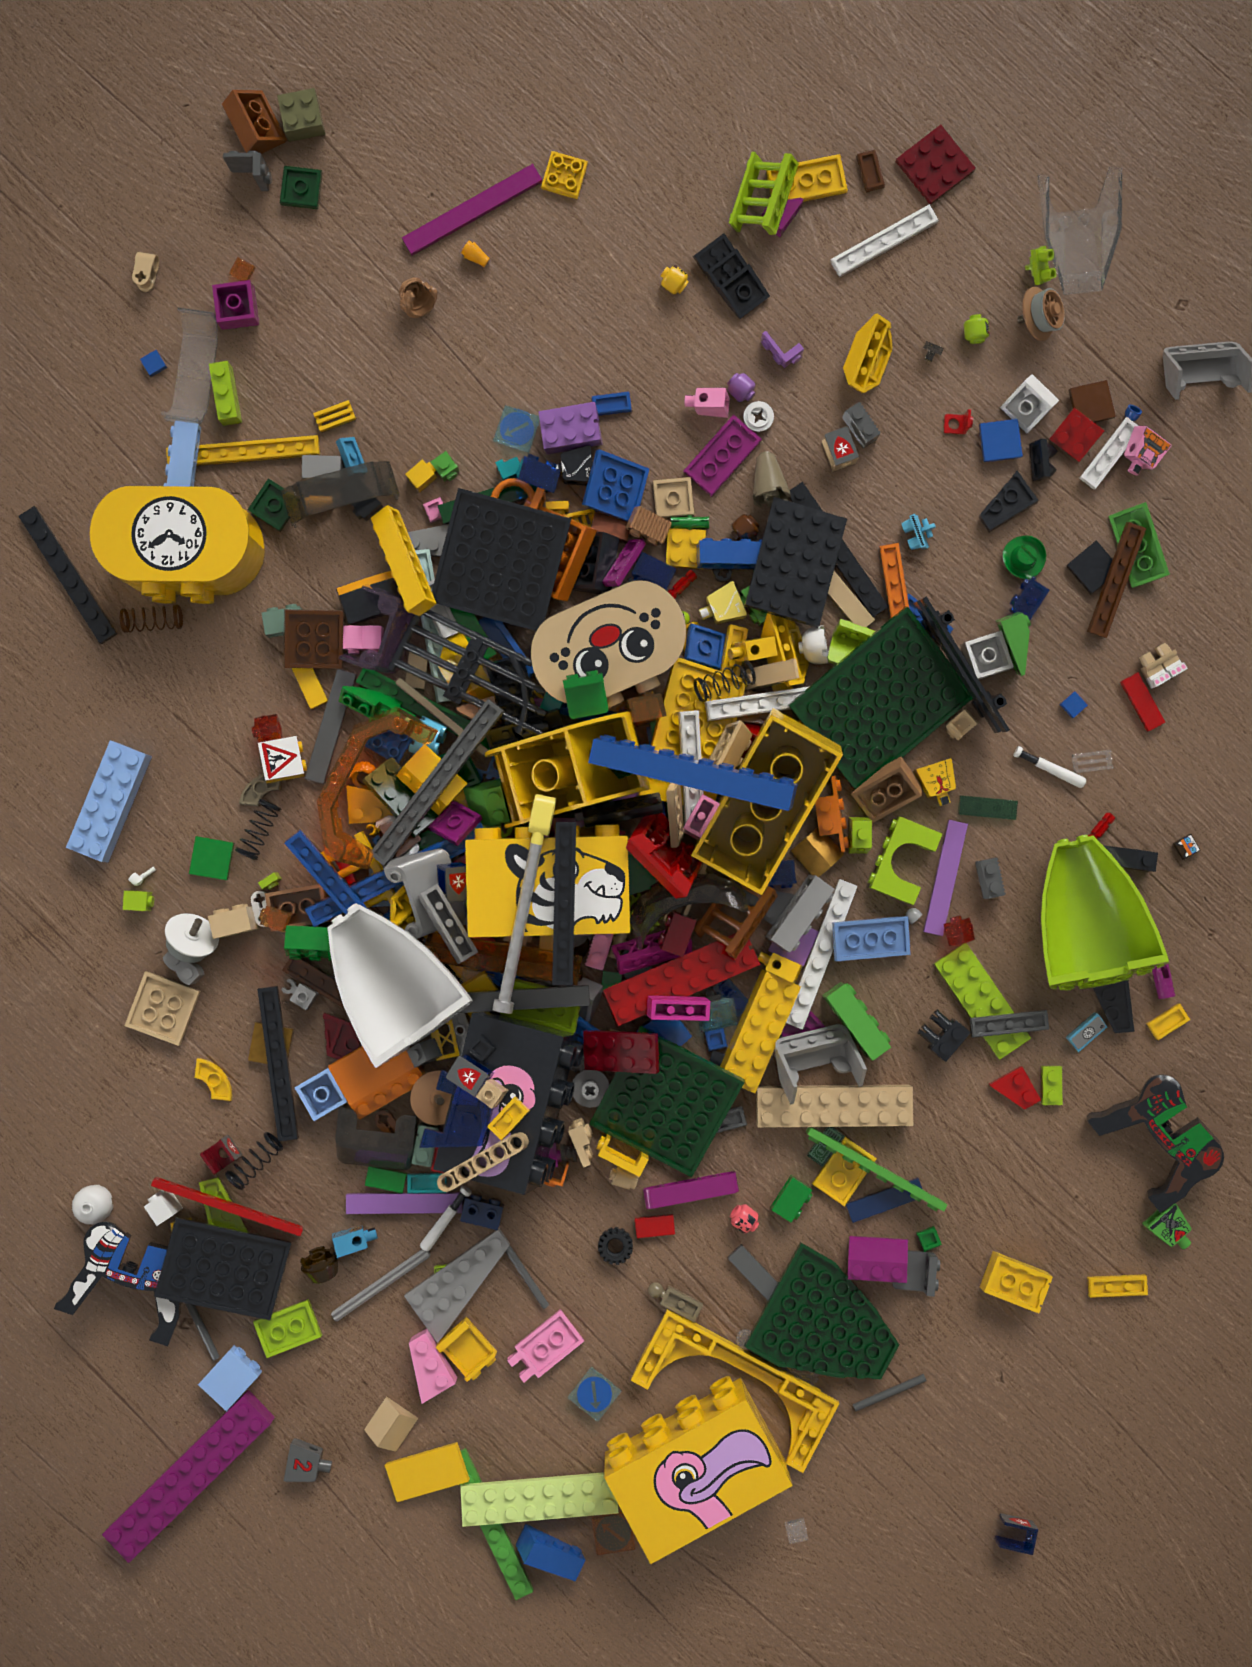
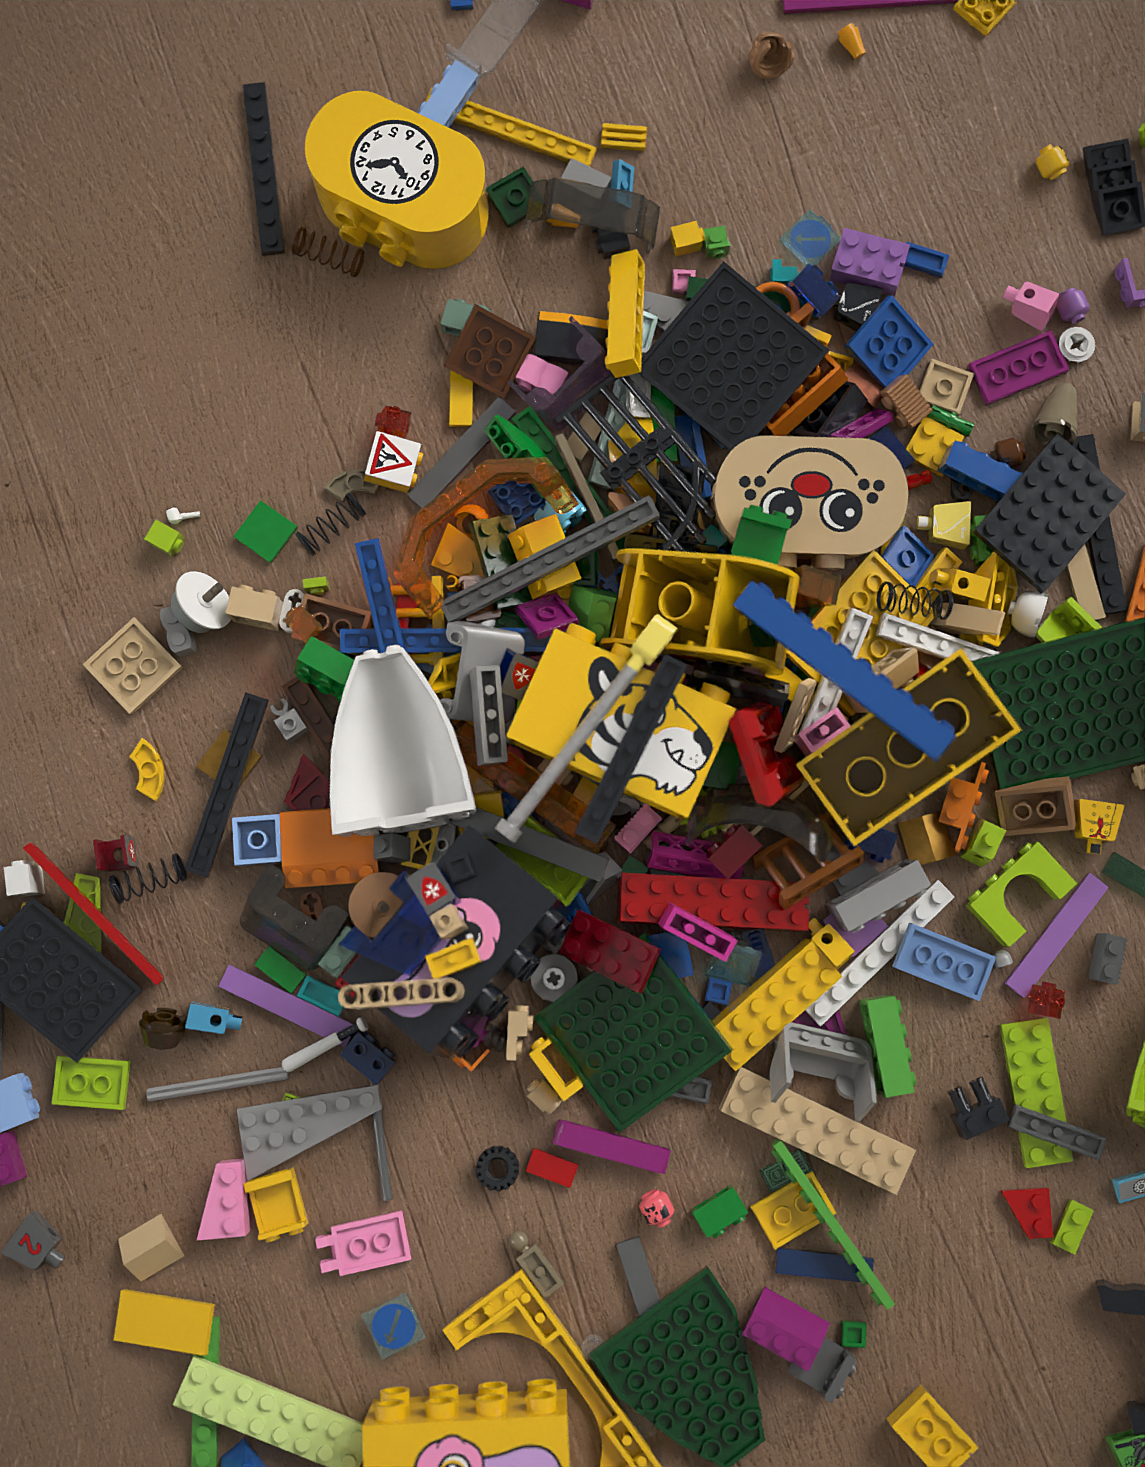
camera: 25 degrees right, 5 degrees down
(108, 801) = (187, 419): light blue brick -> none
(225, 393) = (521, 60): lime brick -> none

